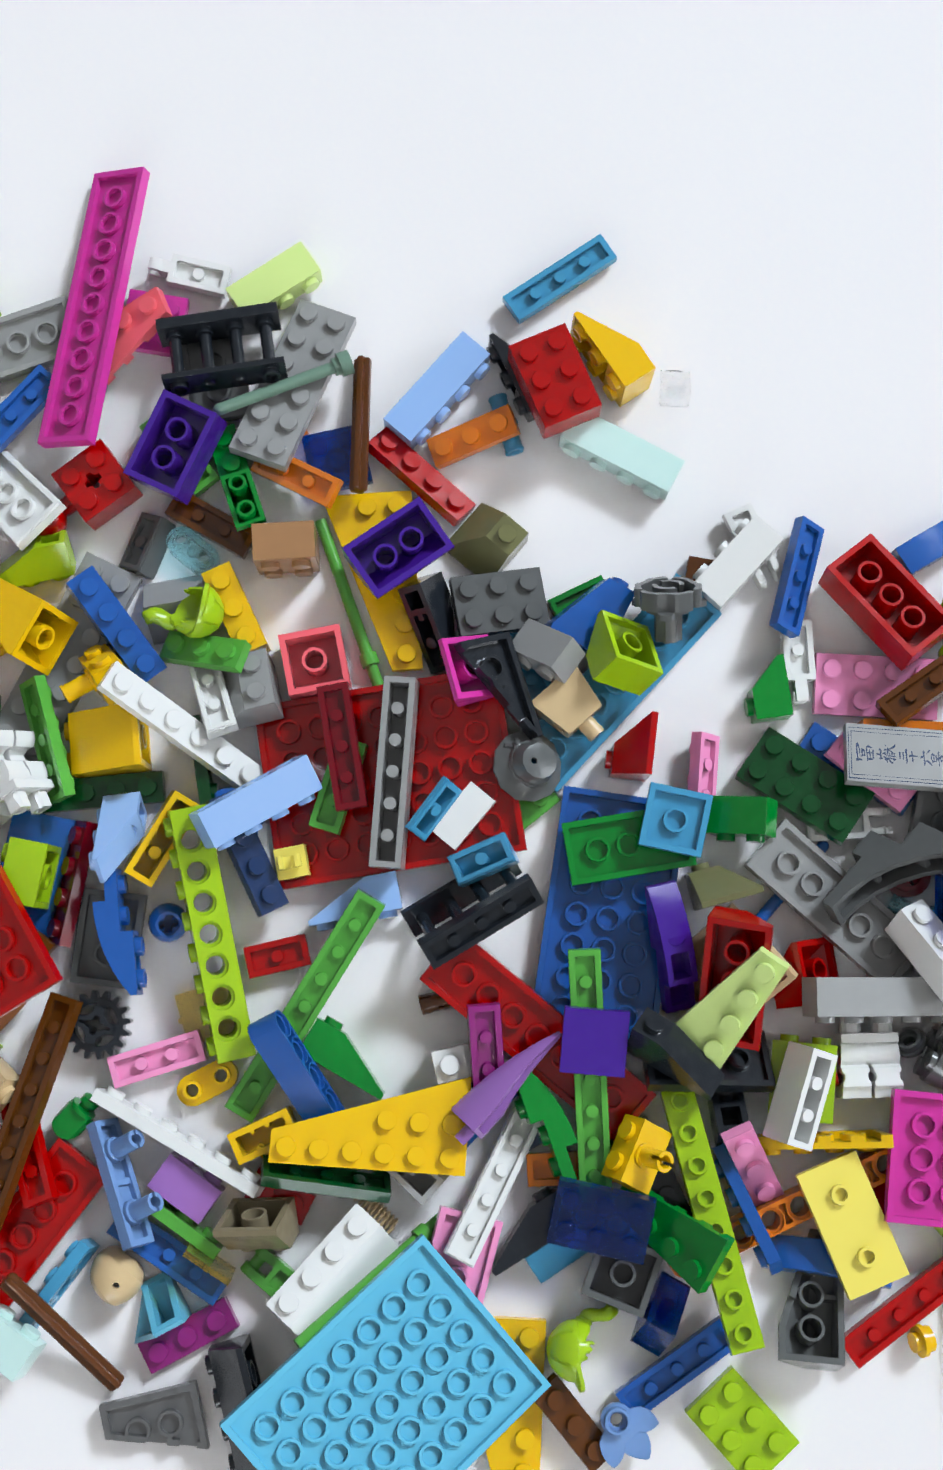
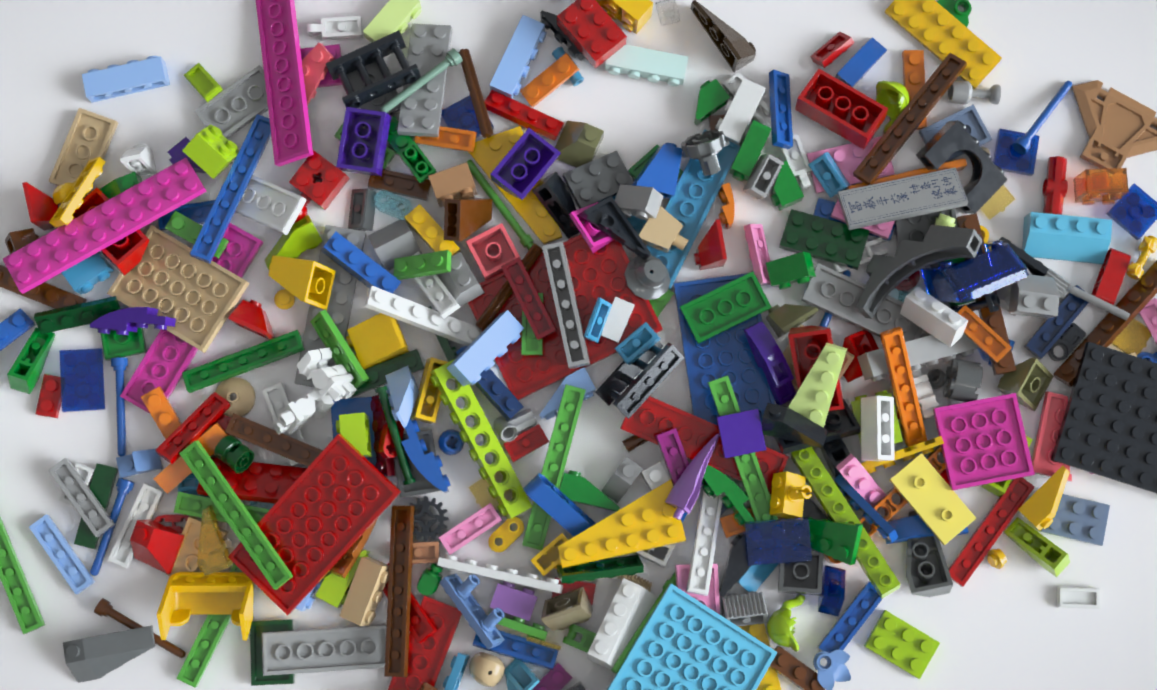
camera: 15 degrees left, 0 degrees up
(74, 889) = (386, 440): none -> red beam
(80, 1073) = (425, 552): none -> nougat plate
(86, 891) = (395, 435): none -> dark green bar
(95, 664) = (356, 294): yellow brick -> none
(195, 615) = (410, 243): lime piece -> none
(278, 923) = (521, 421): none -> light grey piece
(288, 599) = (465, 216): none -> reddish brown slope
(291, 862) = (517, 381): light yellow tile -> none
(313, 725) = (506, 290): none -> reddish brown axle
(401, 1053) = (622, 479): none -> light grey slope
(523, 1302) = (745, 608): none -> light grey brick
(622, 654) = (686, 189): lime slope -> none
(674, 702) = (727, 211): none -> orange slope
(675, 820) = (750, 283): dark azure plate -> none
(699, 533) = (710, 100): none -> green slope
(733, 624) = (750, 151): none -> green slope
(742, 667) = (763, 176): none -> light grey brick
(750, 457) = (728, 41): none -> dark brown wedge
(839, 693) = (829, 174): none -> dark azure slope
(858, 1043) = (903, 386): none -> orange tile
(898, 511) = (832, 49): none -> red plate

